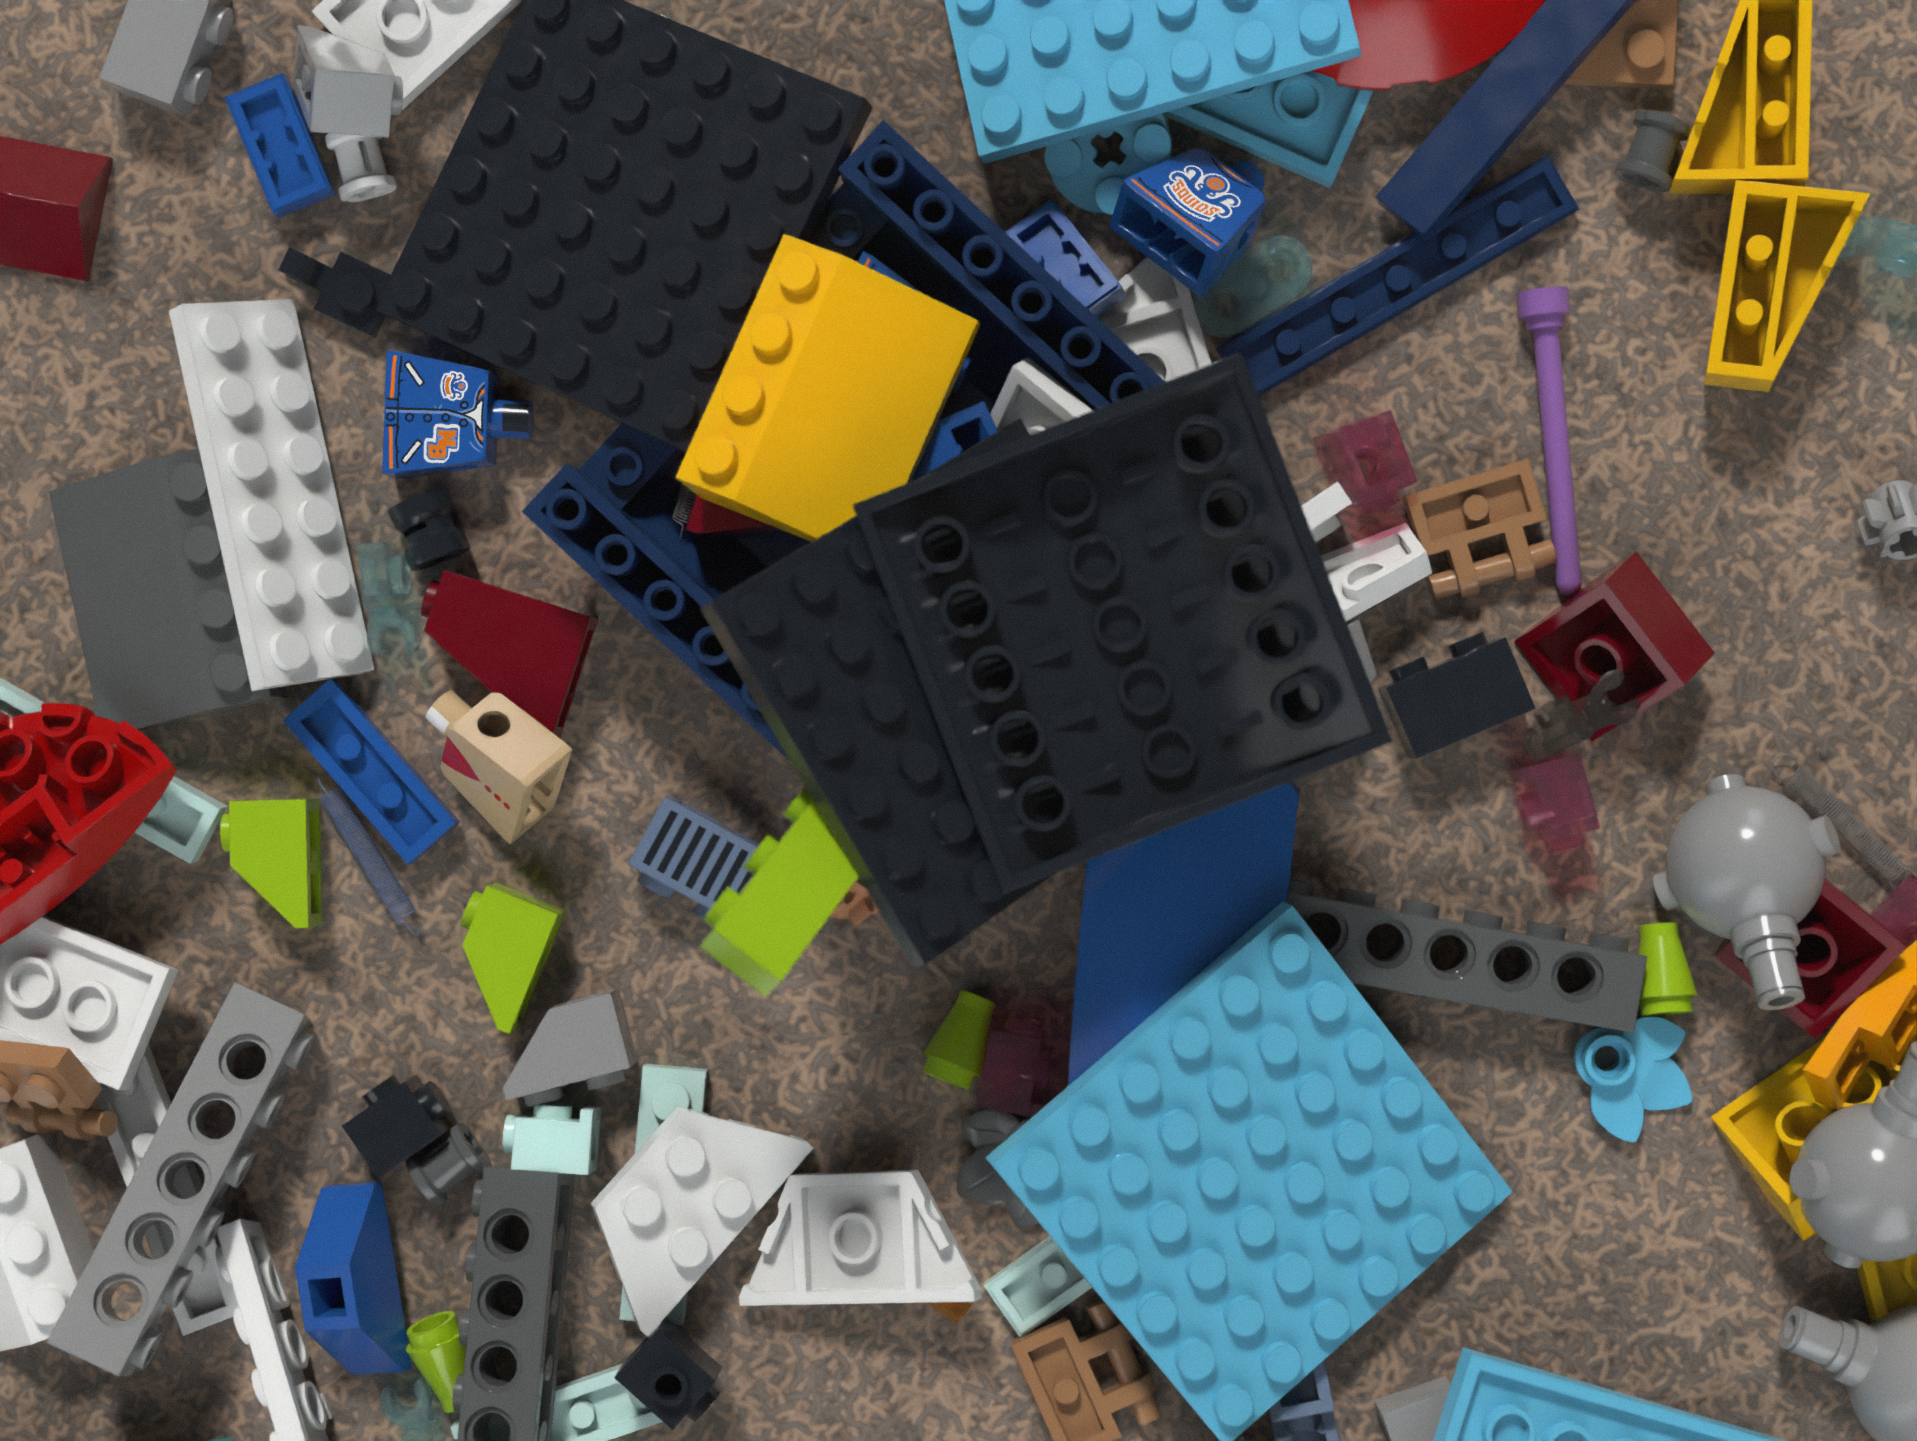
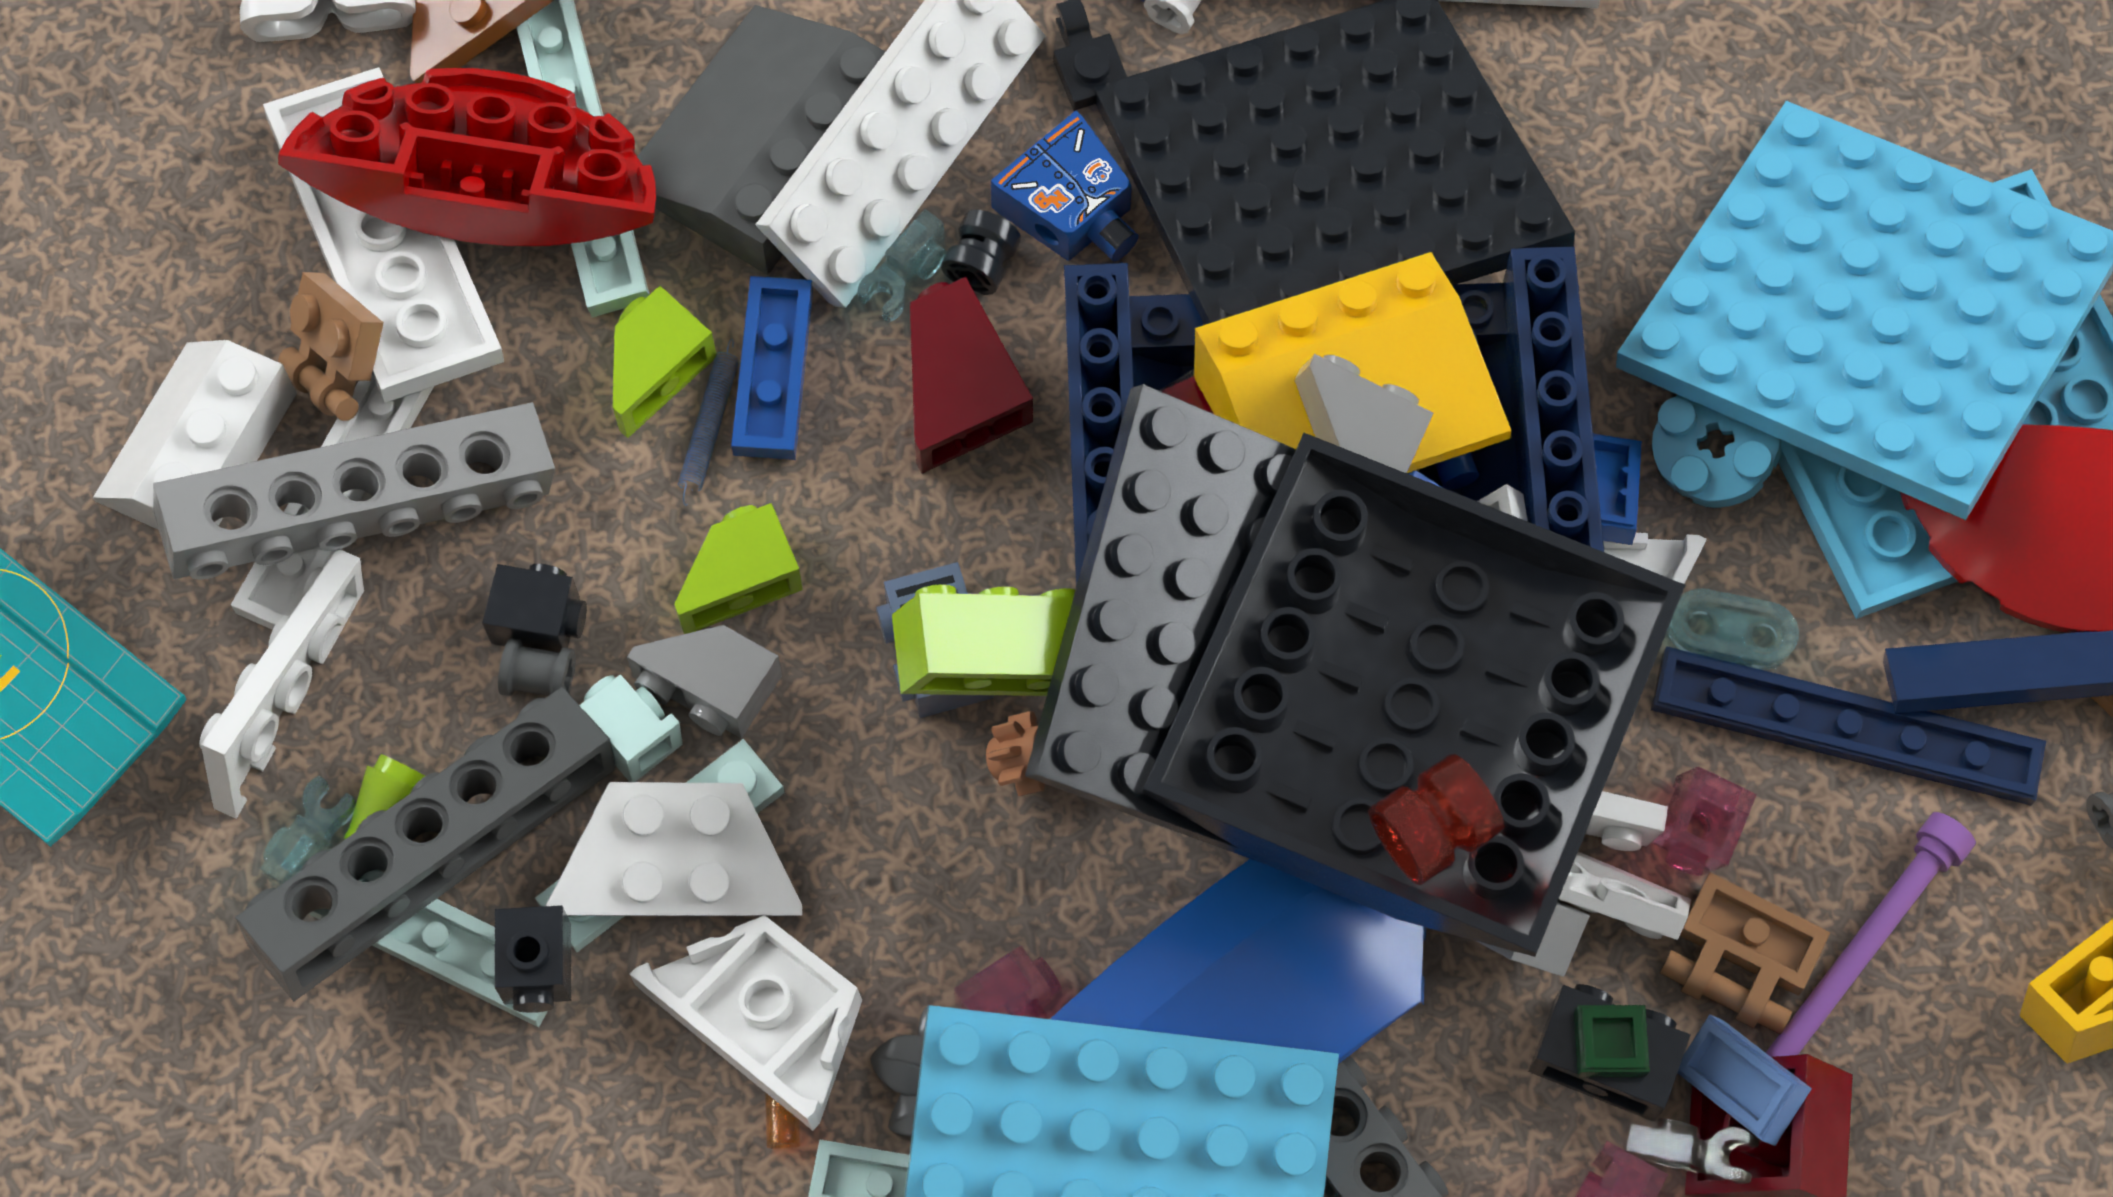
camera: 45 degrees right, 20 degrees down
(352, 1281) = (380, 685): blue slope -> none
(500, 760) = (869, 437): tan torso -> none
(879, 443) = (1359, 414): none -> light grey slope
(960, 1042) = (982, 941): lime cone -> none
(1191, 215) = (1734, 531): blue torso -> none
(1240, 724) = (1430, 823): none -> clear red wheel
(1459, 698) = (1611, 1041): none -> dark green tile
(1570, 634) = (1743, 1080): none -> medium blue tile

